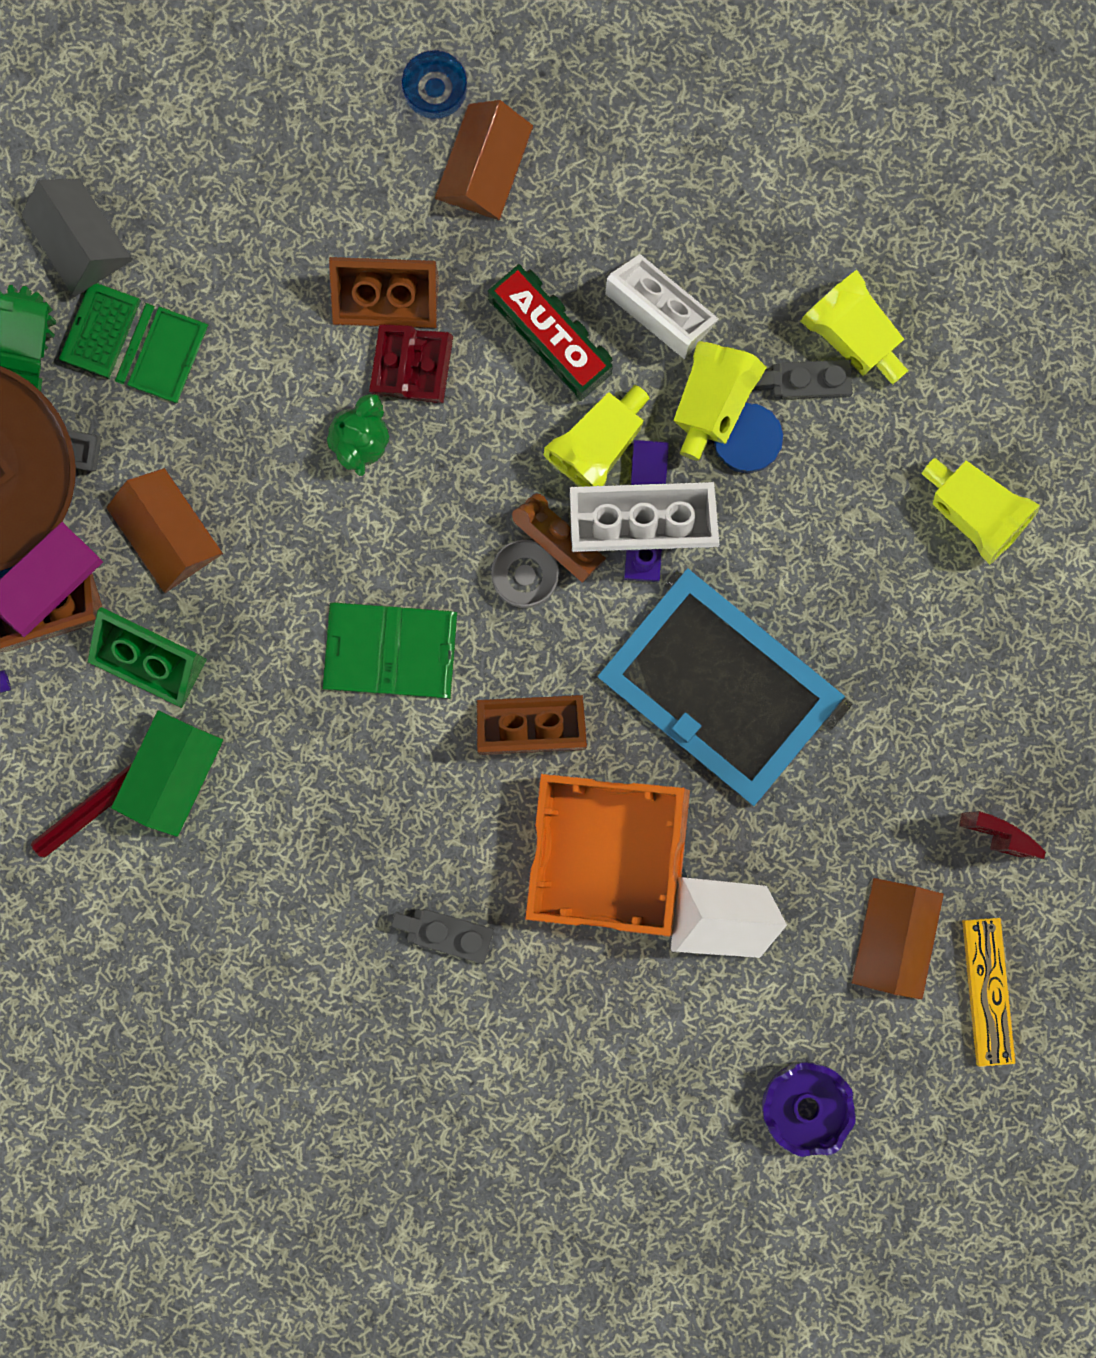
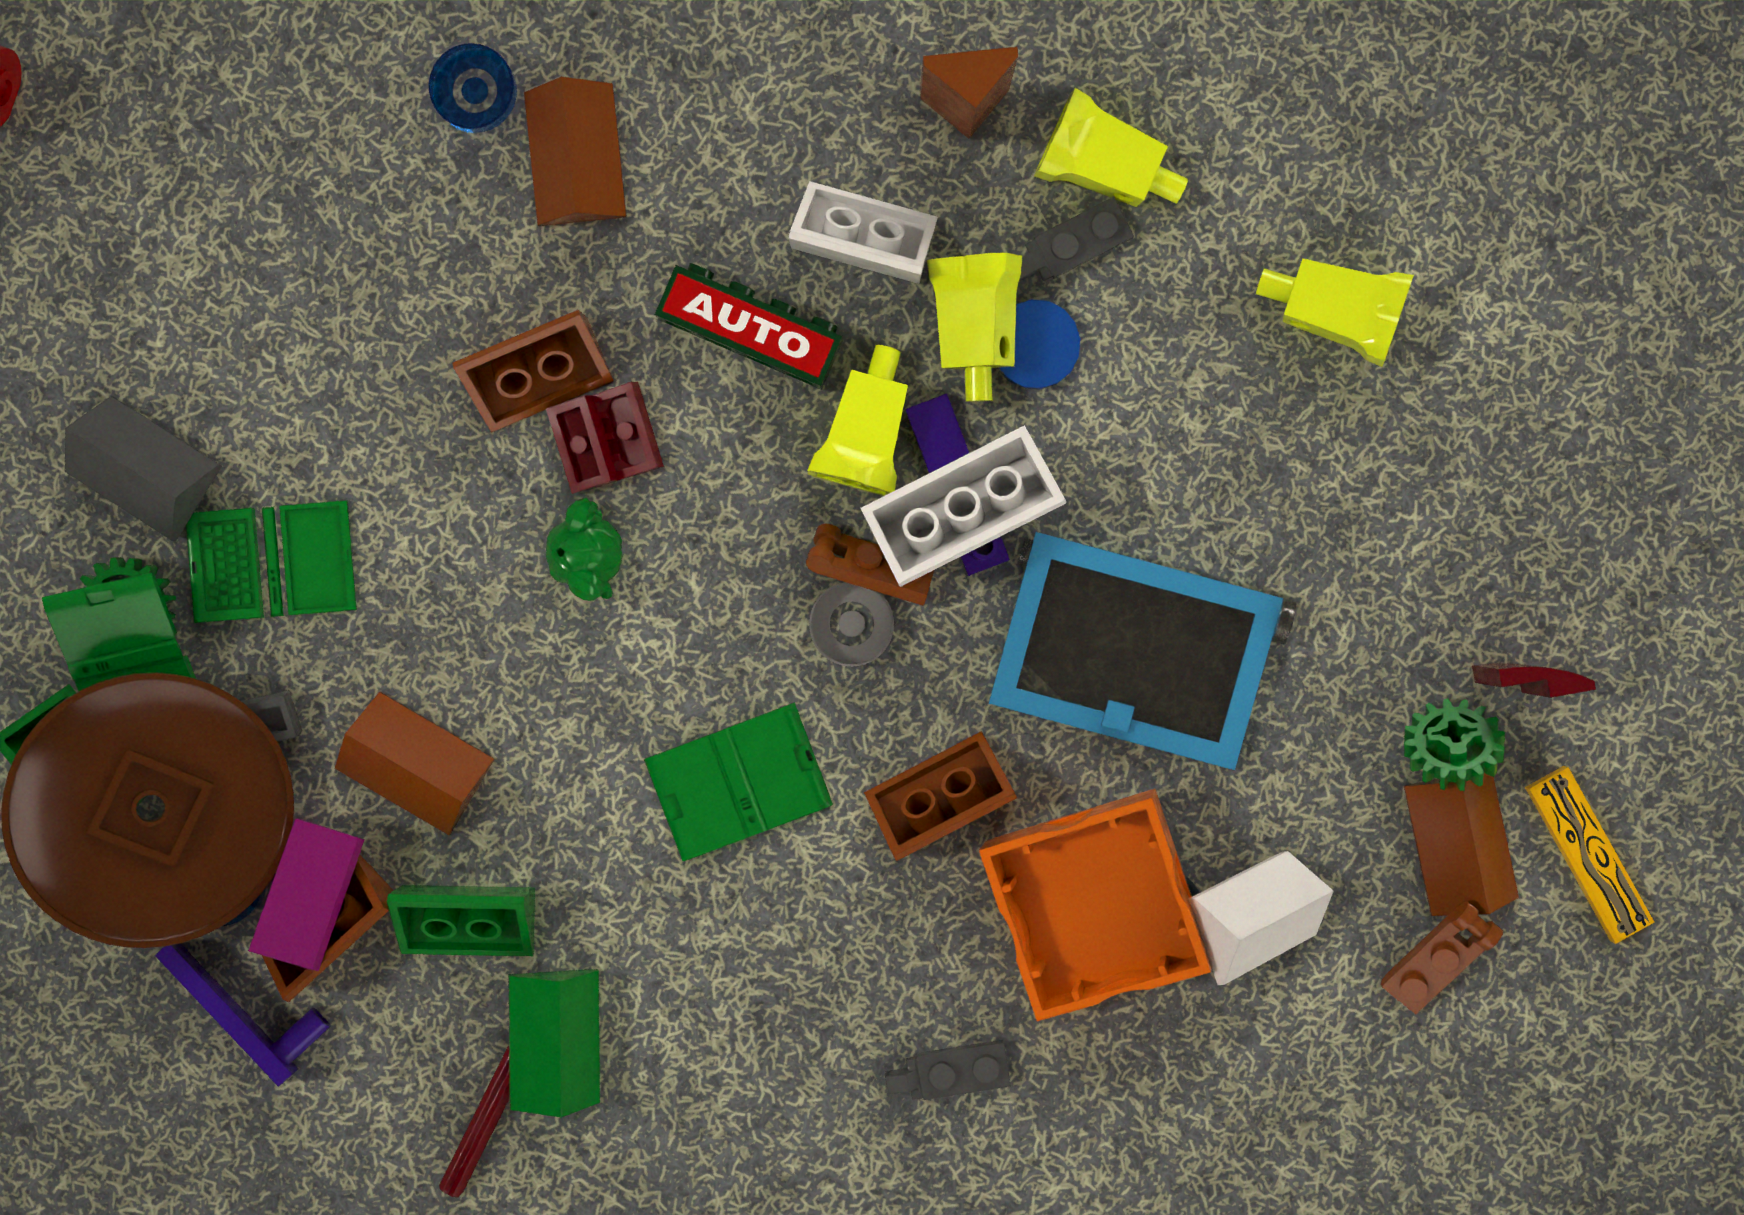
camera: 25 degrees left, 5 degrees up
(782, 230) = (967, 84): none -> dark orange slope
(827, 1127) = (1470, 1099): dark purple plate -> none
(844, 1014) = (1440, 957): none -> dark orange plate
(923, 859) = (1454, 744): none -> green gear

